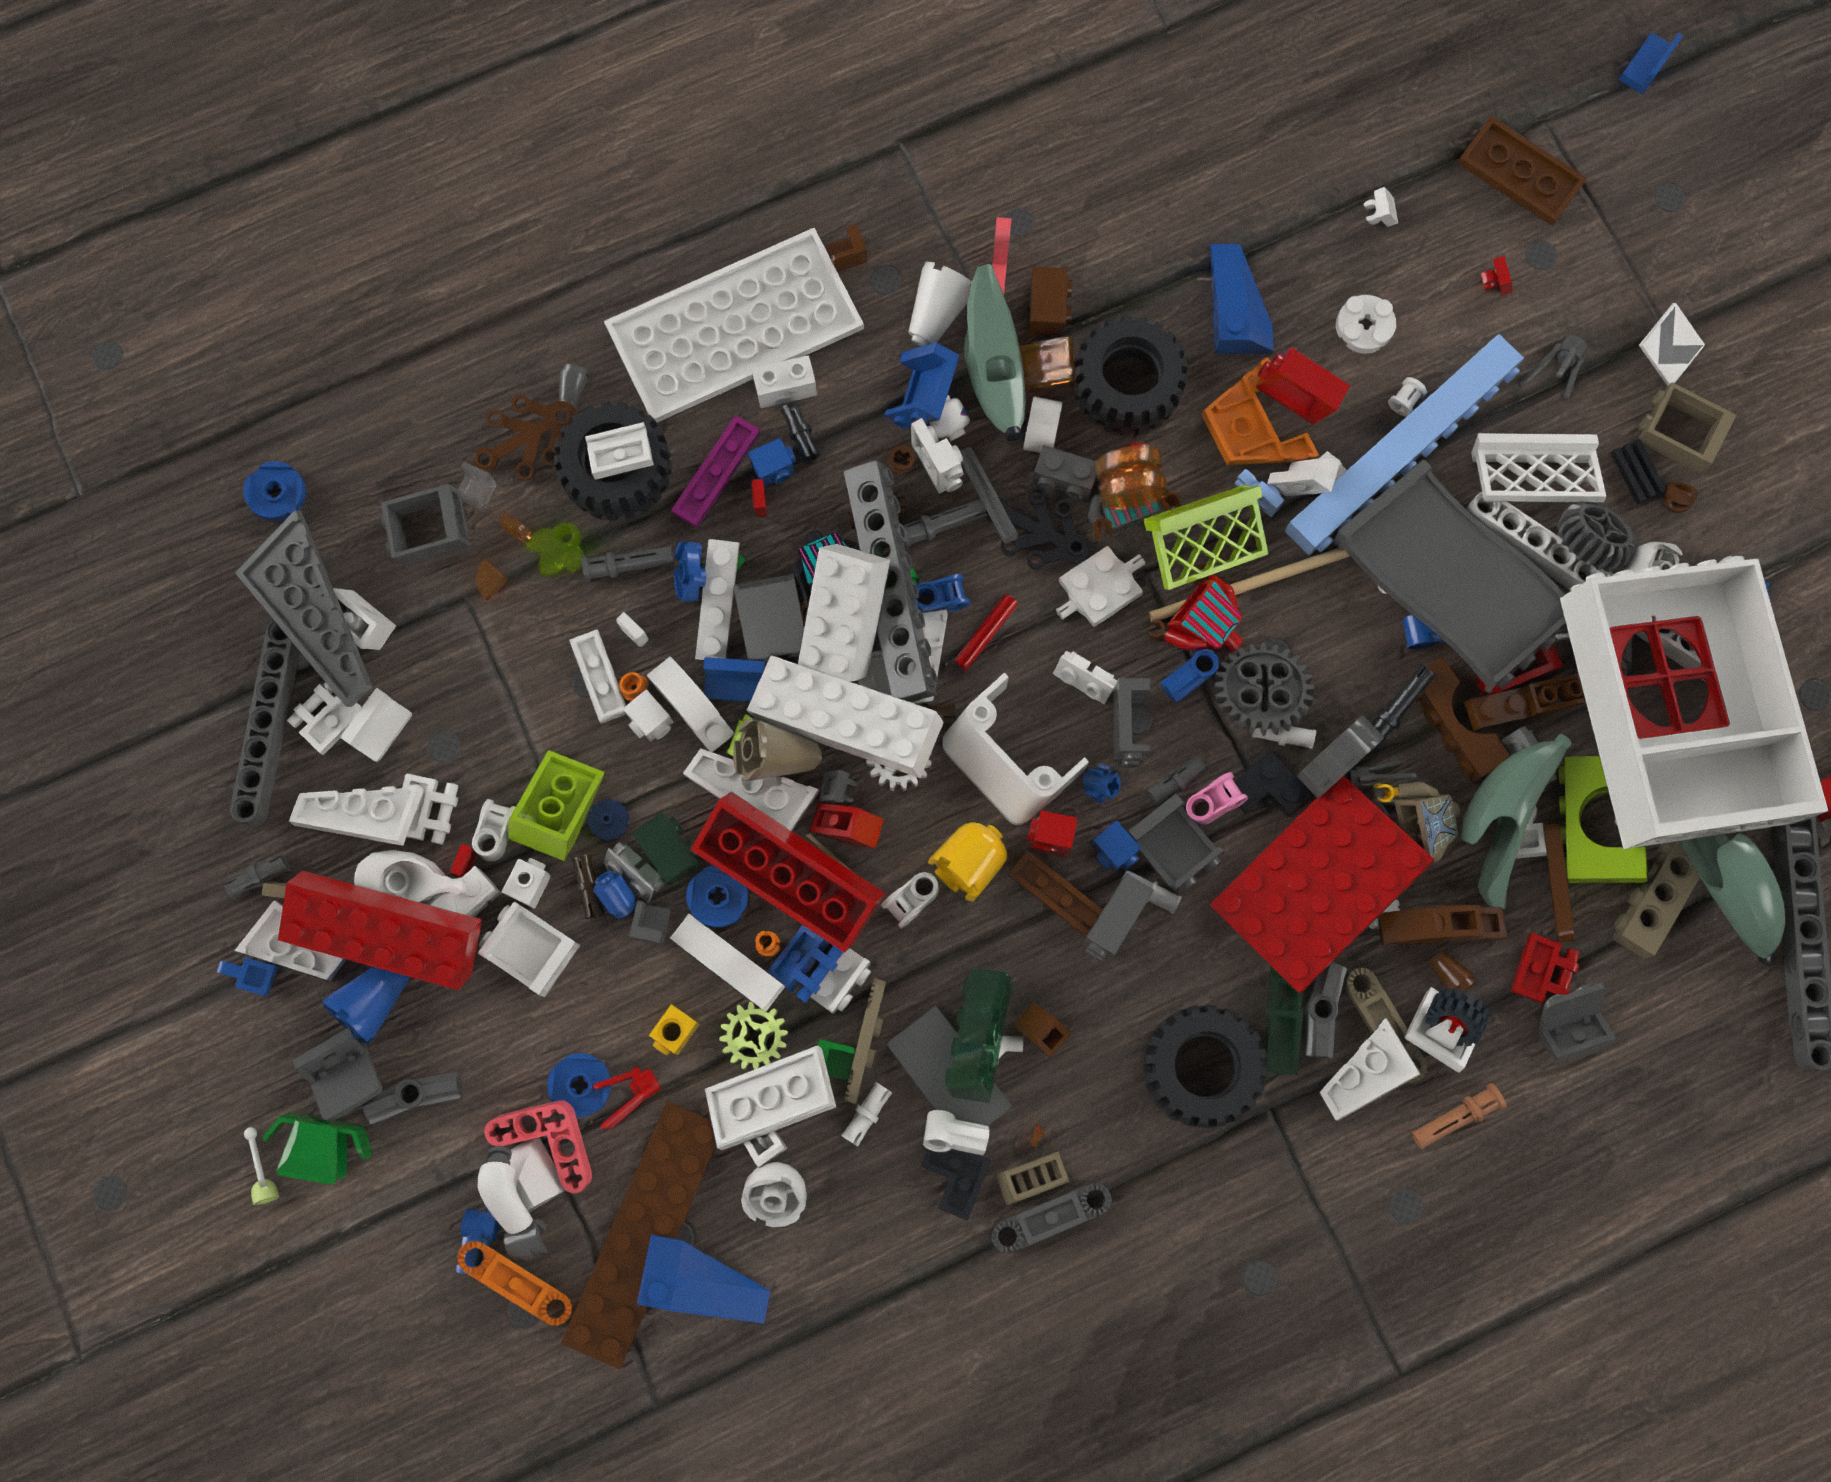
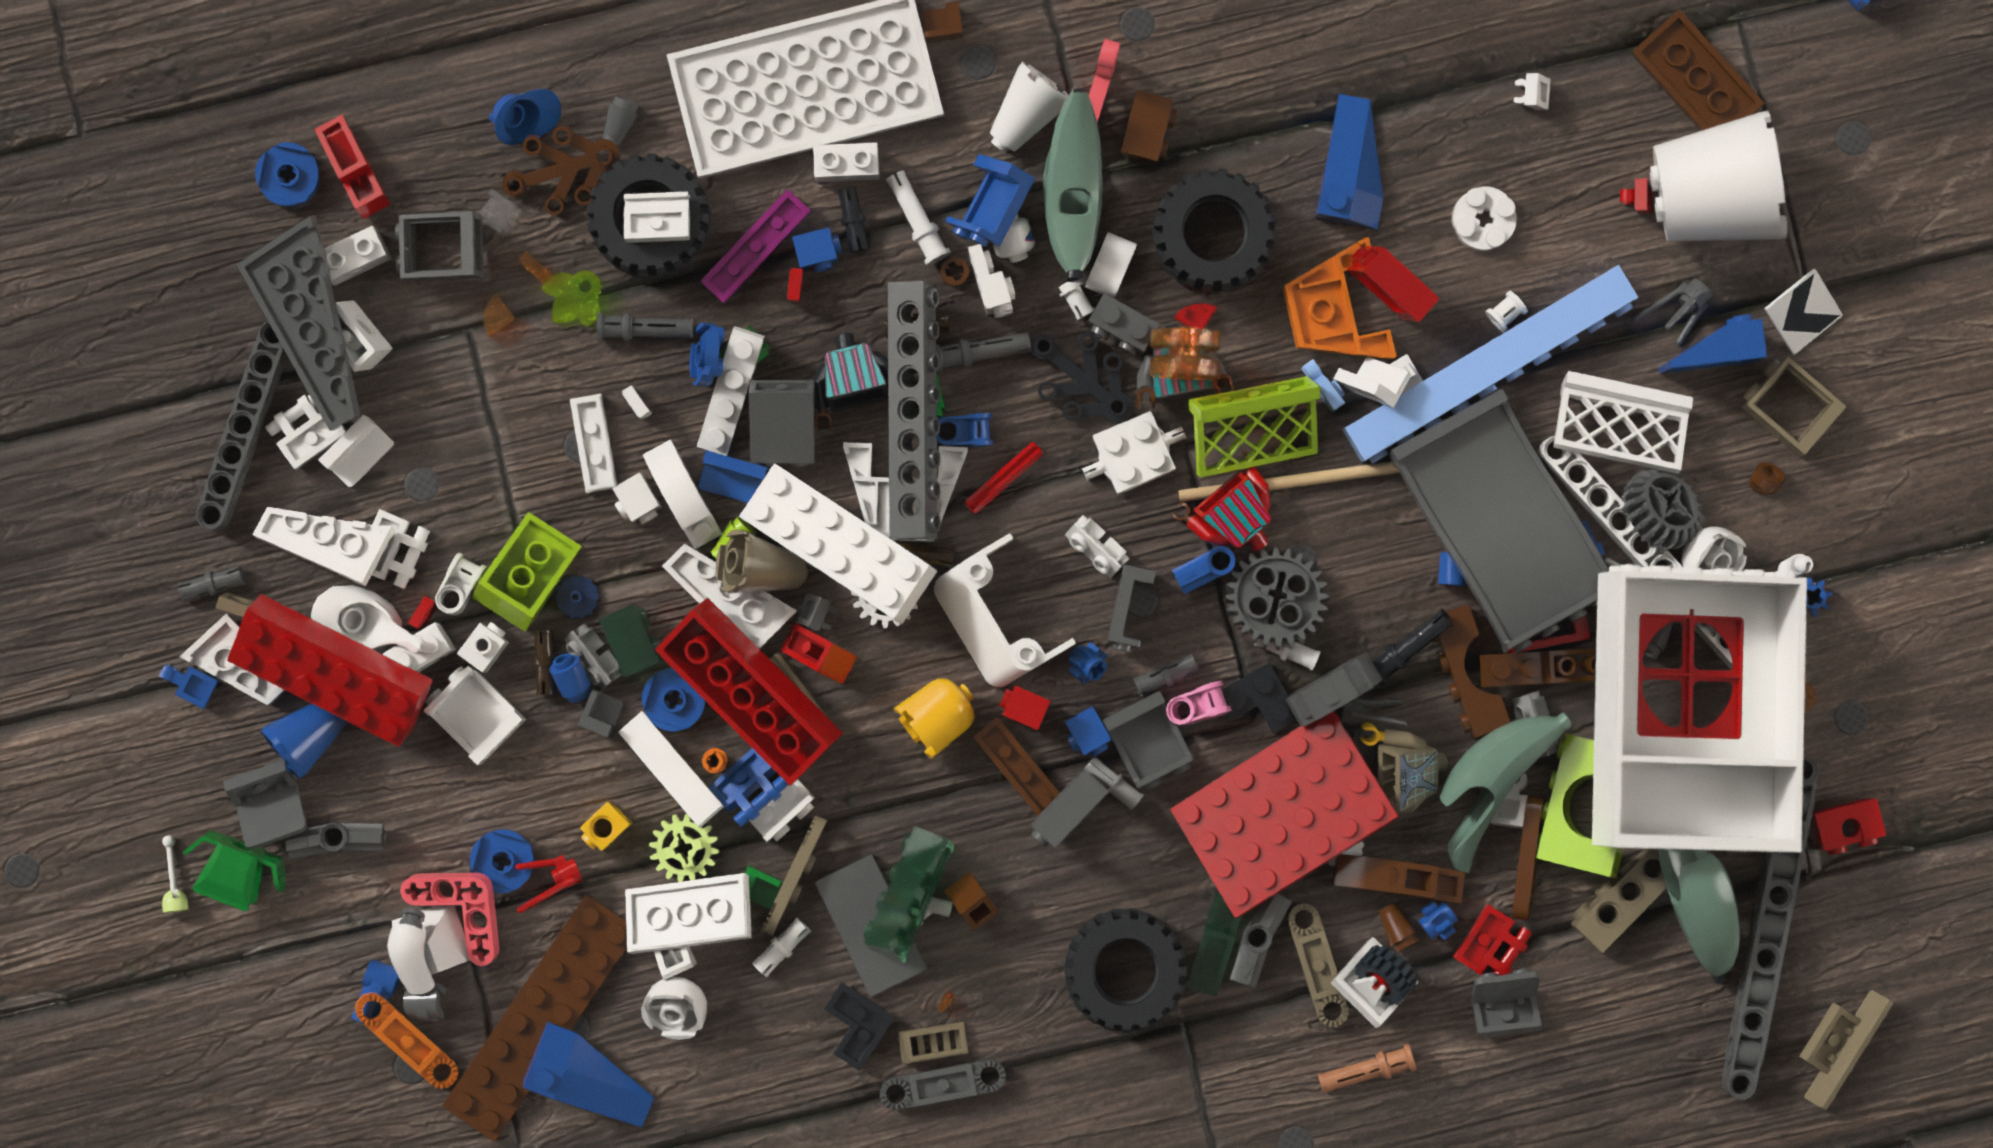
camera: 15 degrees right, 10 degrees up
(333, 473) = (352, 167): none -> red slope
(347, 548) = (355, 255): none -> white brick
(484, 393) = (525, 115): none -> blue piece
(631, 680) = (622, 457): orange plate -> none
(843, 612) = (856, 437): white brick -> none
(867, 428) = (924, 231): none -> white pin
(910, 900) = (868, 742): white piece -> none
(947, 1133) = (856, 983): white piece -> none
(988, 496) = (1035, 333): dark grey axle -> none
(1017, 460) = (1076, 299): none -> white pin
(1048, 362) = (1129, 198): clear orange plate -> none
(1371, 1073) = (1290, 1010): white wing -> none
(1489, 958) = (1438, 920): none -> blue gear
(1578, 240) = (1721, 183): none -> white cone
(1617, 385) = (1732, 344): none -> blue slope
(1642, 468) = (1743, 437): black tile -> none

